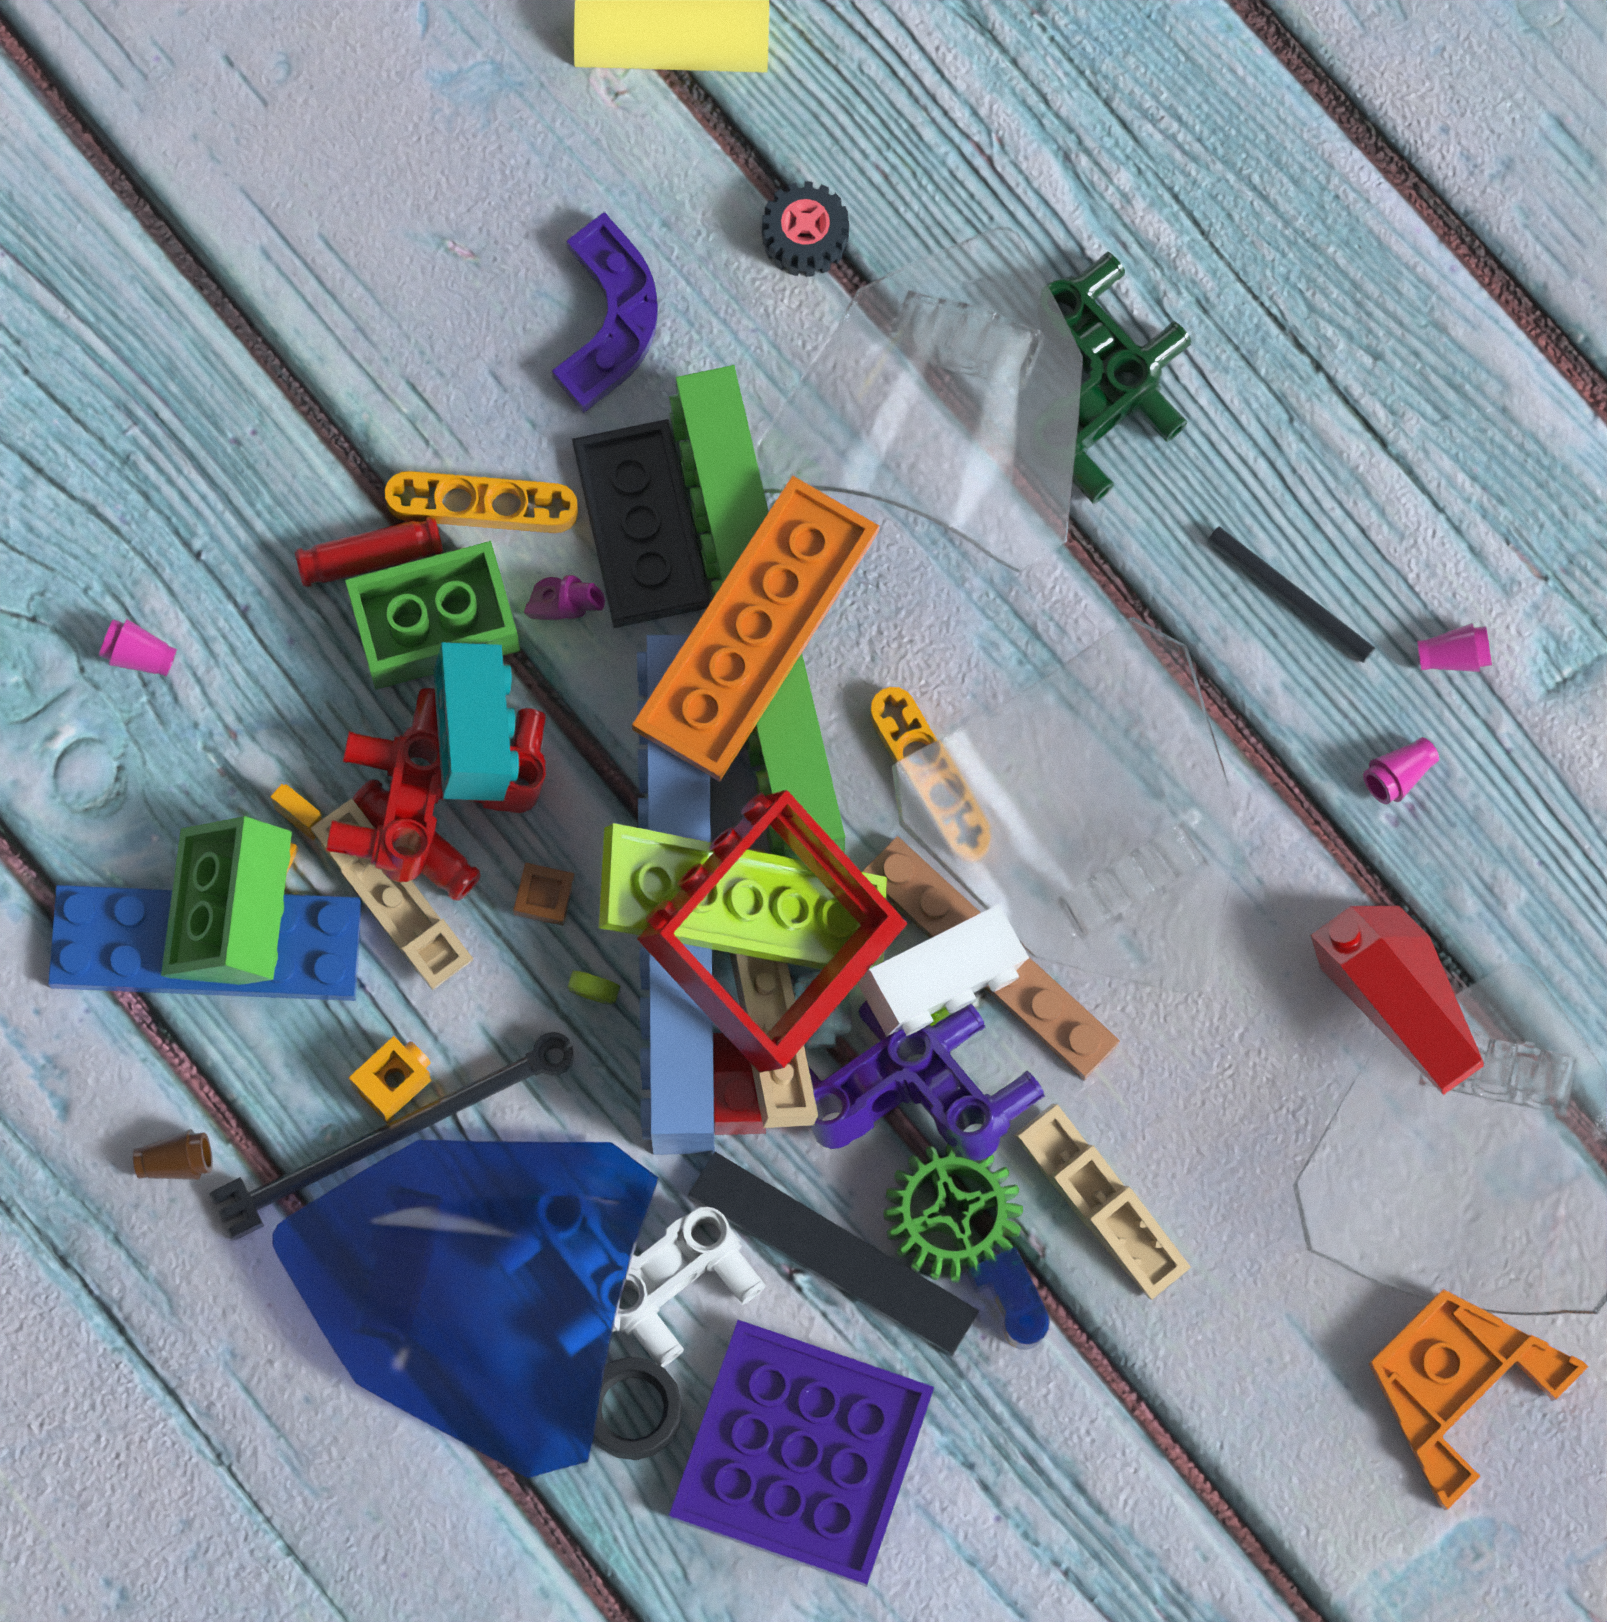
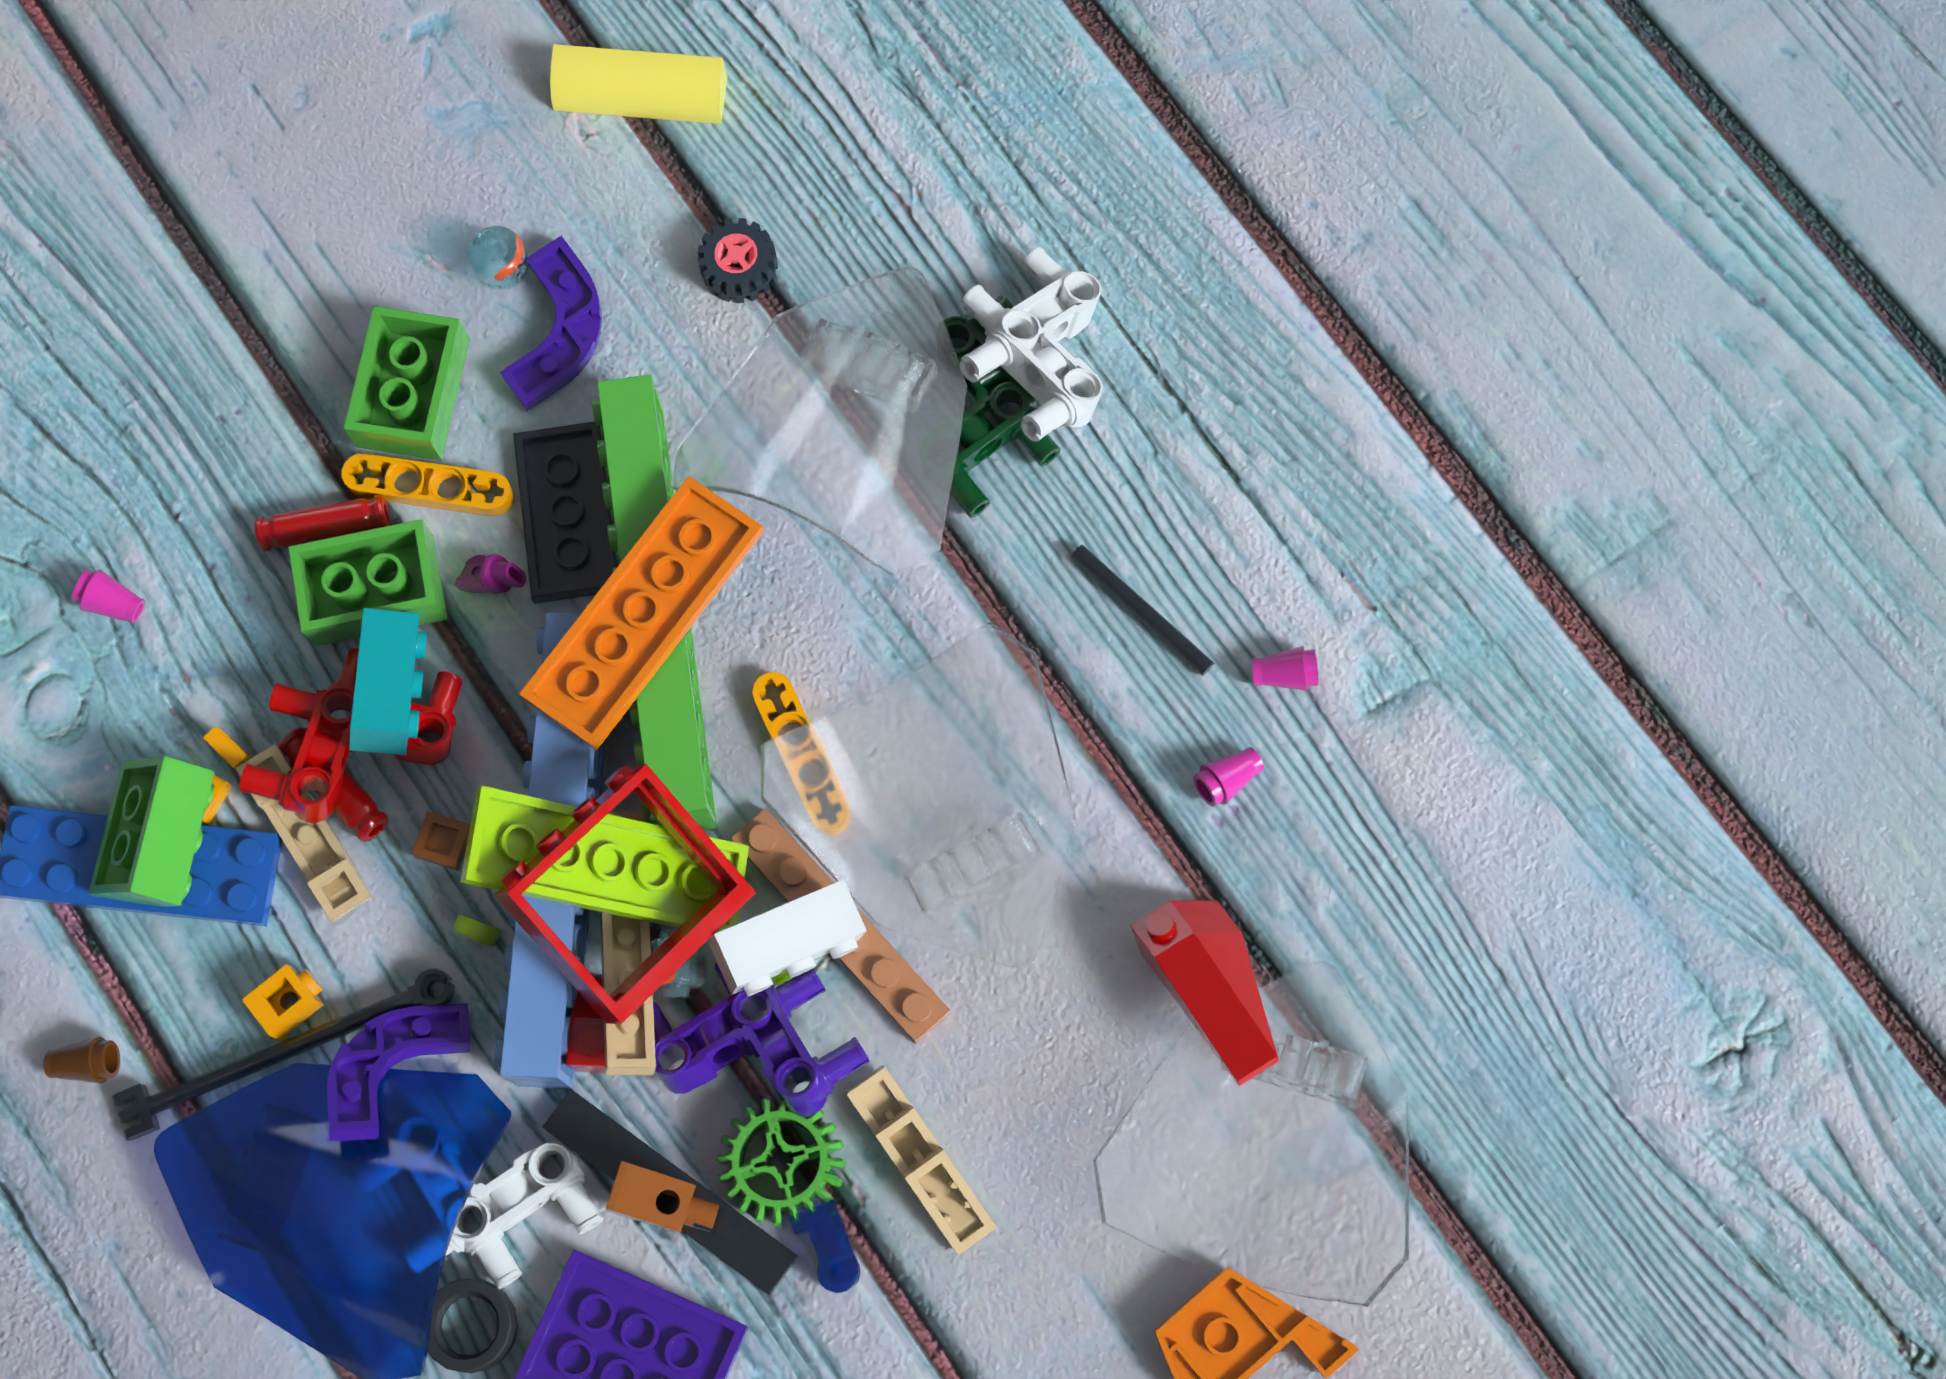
camera: 10 degrees right, 0 degrees up
(451, 389) = (407, 383): none -> bright green brick
(507, 1117) = (377, 1048): none -> dark purple plate
(536, 241) = (498, 257): none -> clear light blue head
(806, 1258) = (636, 1195): none -> dark orange torso
(1144, 308) = (1028, 346): none -> white pin

